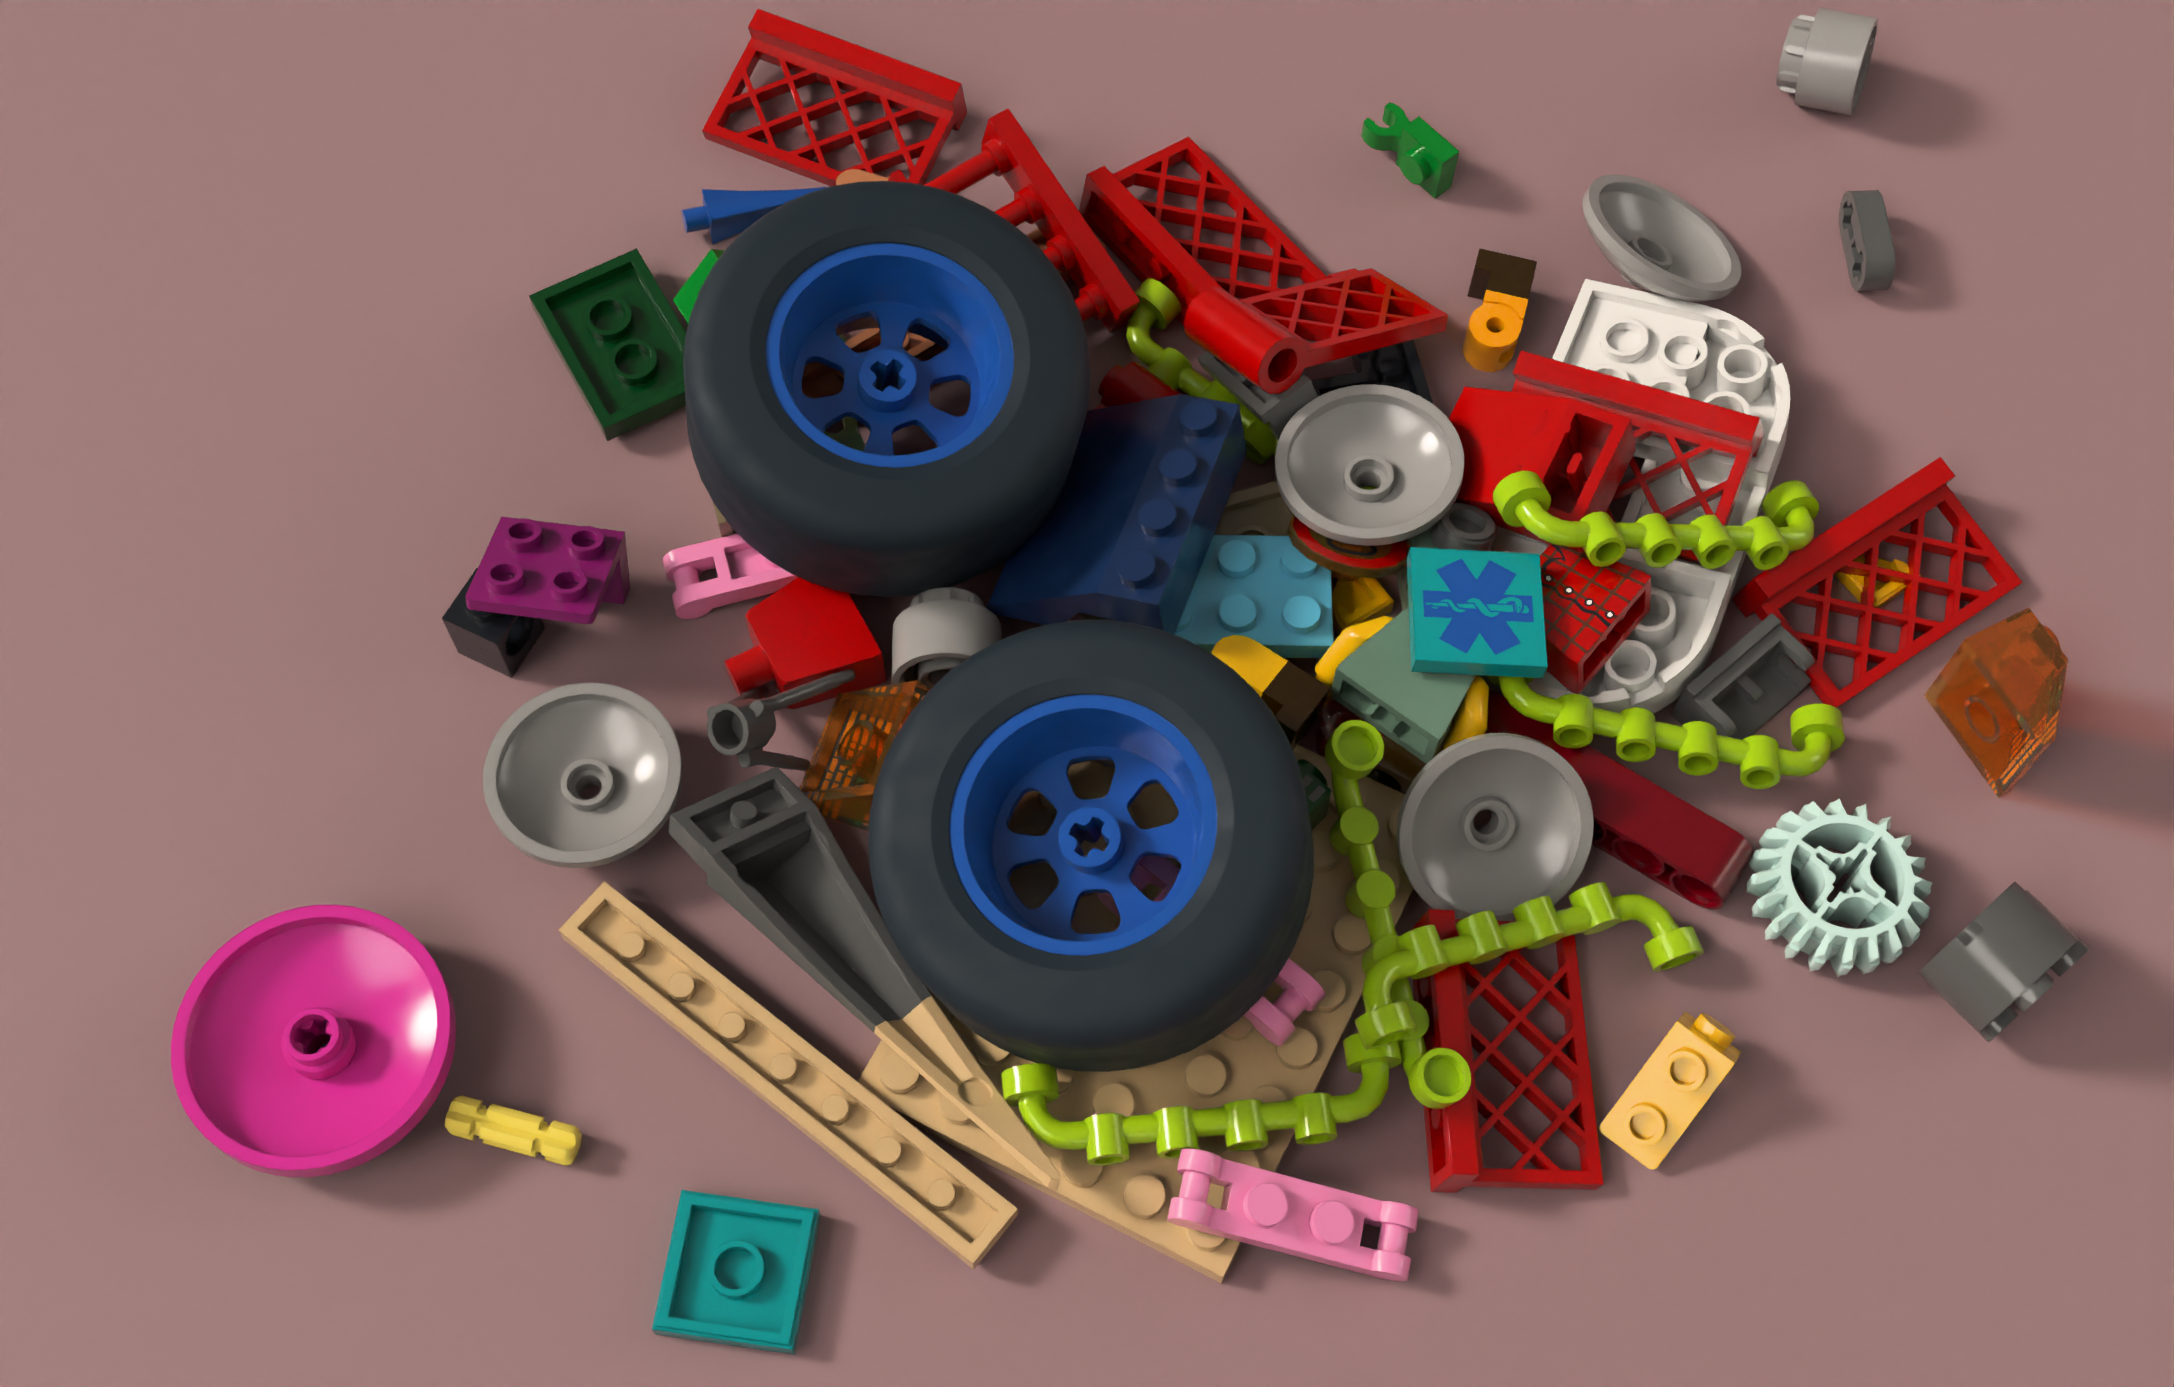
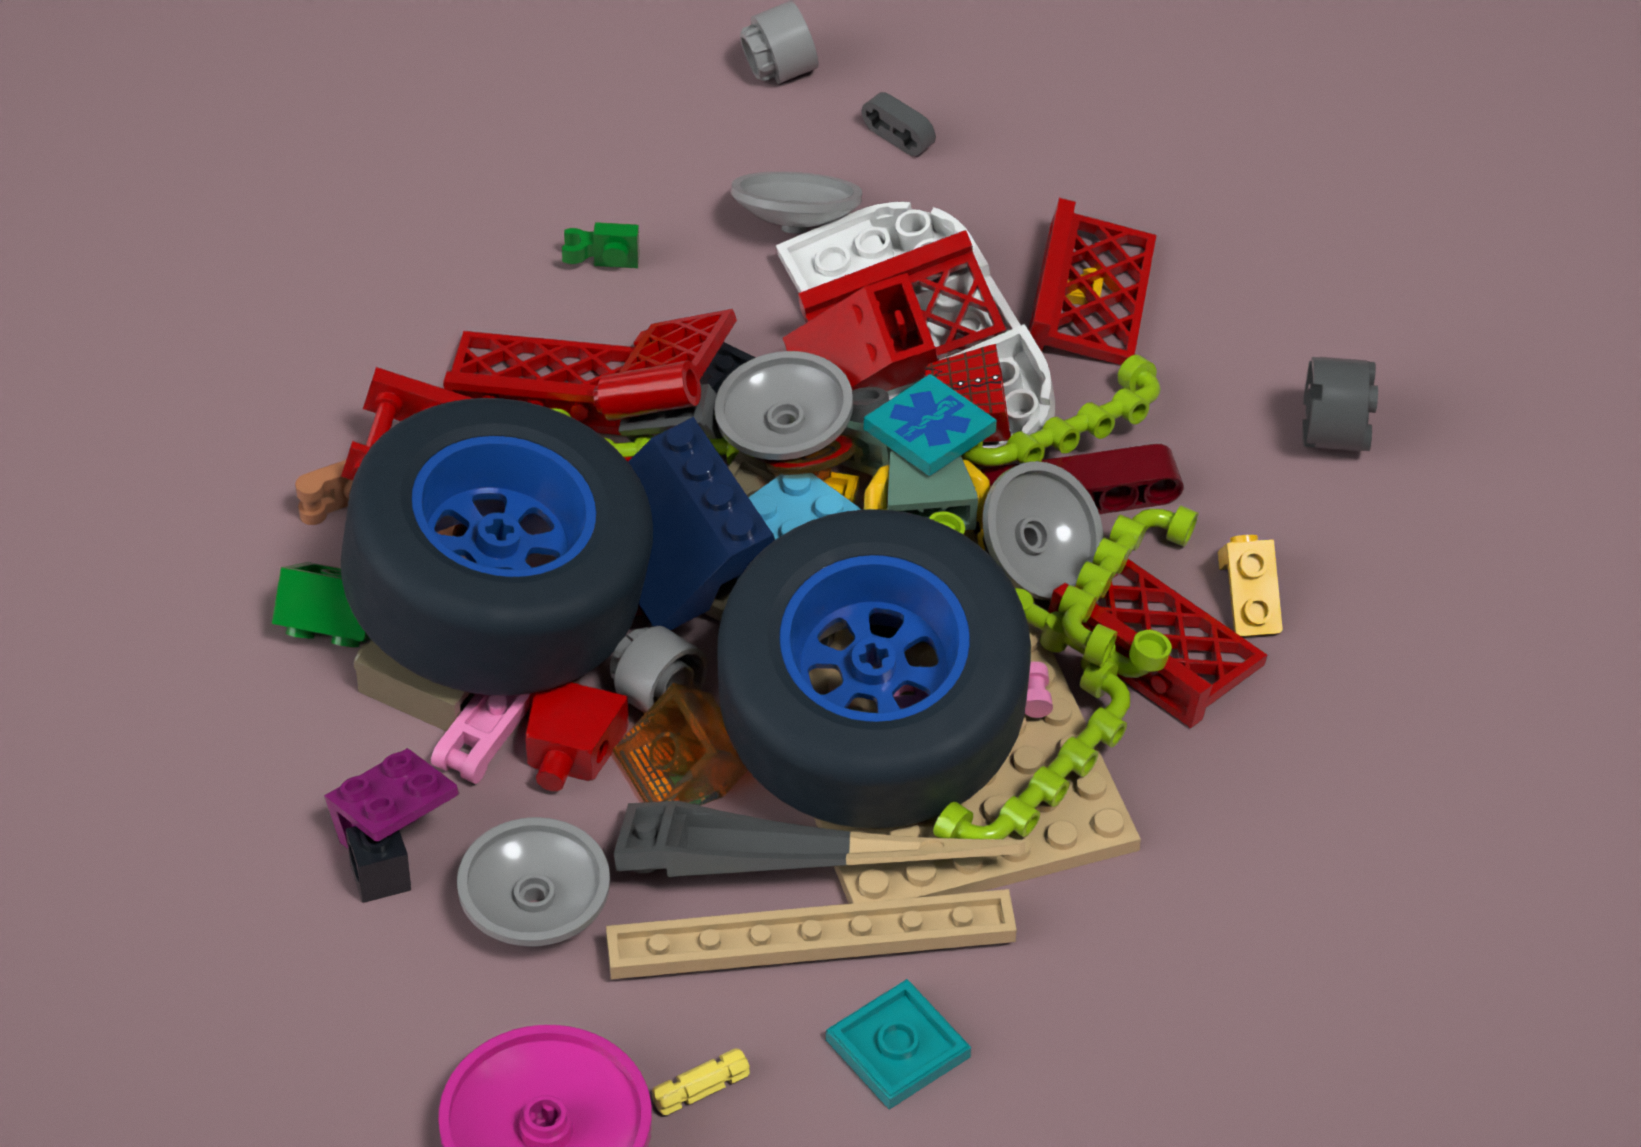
camera: 45 degrees left, 15 degrees down
(617, 342) = (262, 673): dark green plate -> none
(733, 211) = (238, 560): blue piece -> none
(749, 722) = (604, 777): dark grey plant -> none
(844, 67) = (226, 434): red fence -> none
(1292, 1216) = (1144, 780): bright pink plate -> none
(1495, 326) = (746, 292): leg -> none
(1748, 682) = (1079, 375): dark grey hinge -> none
(1765, 539) = (1022, 292): lime bar -> none
(1885, 912) = (1228, 437): light aqua gear -> none
(2003, 697) = (1214, 288): clear orange slope -> none

